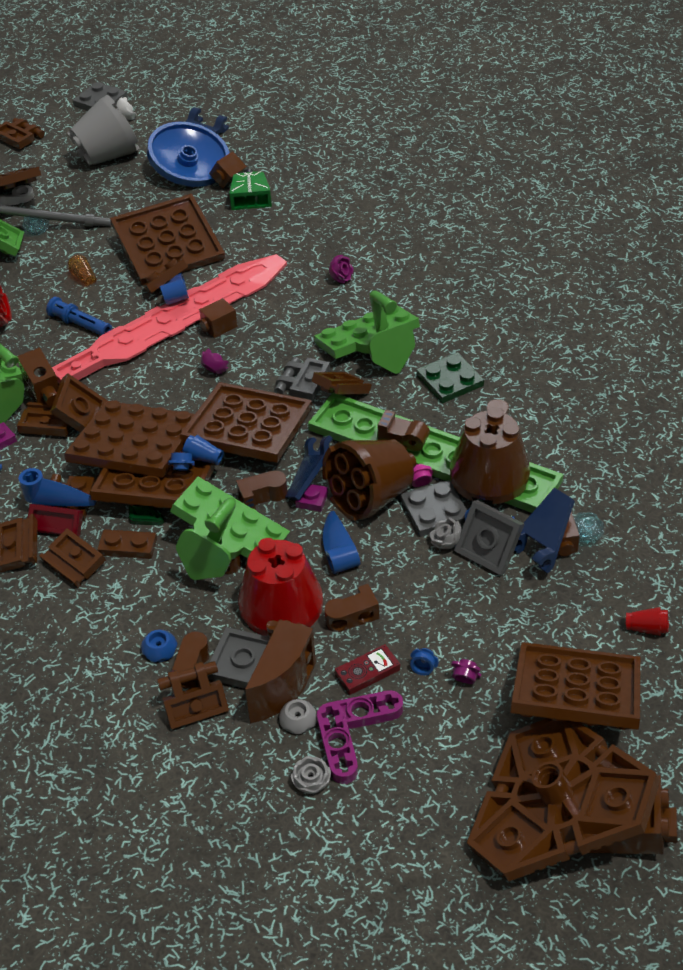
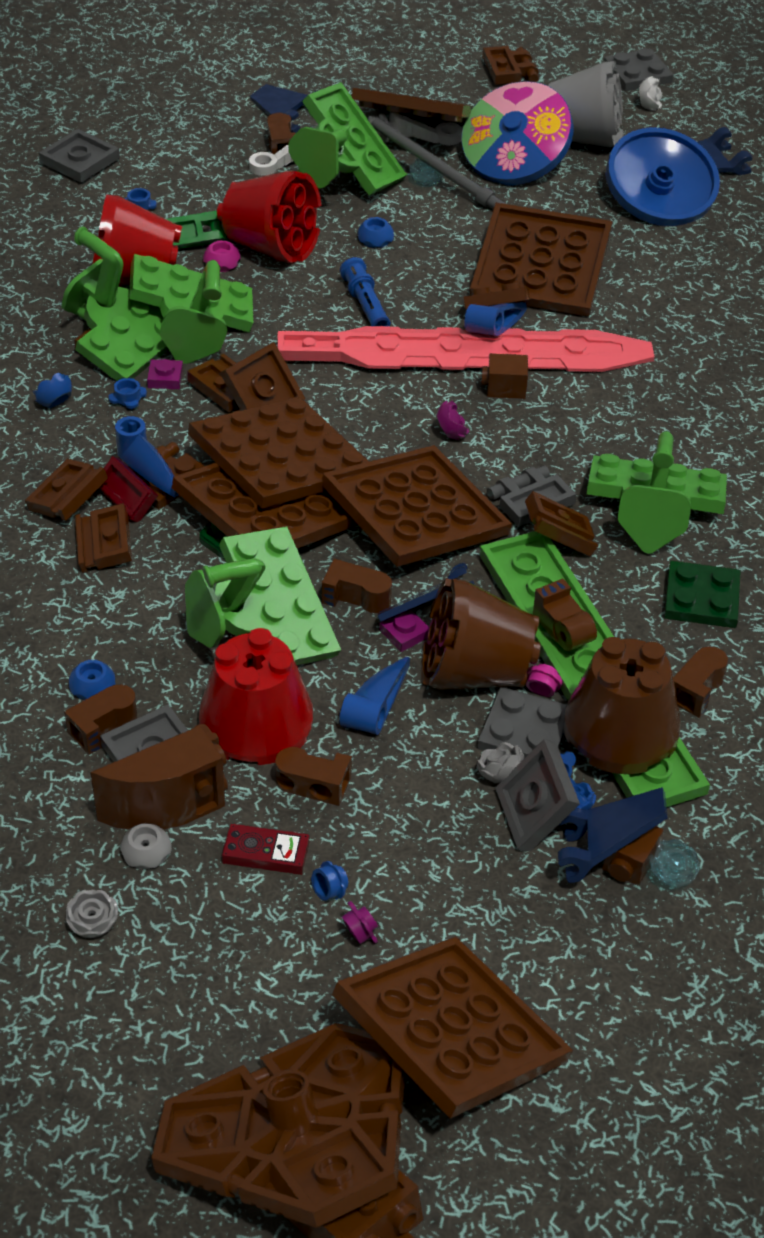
camera: 35 degrees right, 0 degrees up
(42, 277) = (375, 232): none -> blue plate
(42, 388) = (242, 339): reddish brown torso -> none
(76, 170) = (517, 133): none -> dish
(81, 269) = (421, 245): clear orange cone -> none
(127, 544) = (169, 557): reddish brown plate -> none
(181, 461) = (291, 501): blue plate -> none
(195, 703) = (59, 760): reddish brown plate -> none
(202, 450) = (327, 503): blue cone -> none
(225, 169) = (689, 217): reddish brown brick -> none
(250, 190) = (691, 253): green torso -> none
(340, 269) = (711, 397): magenta plate -> none
(346, 720) = (185, 885): magenta beam -> none
(648, 621) = (631, 1020): red cone -> none

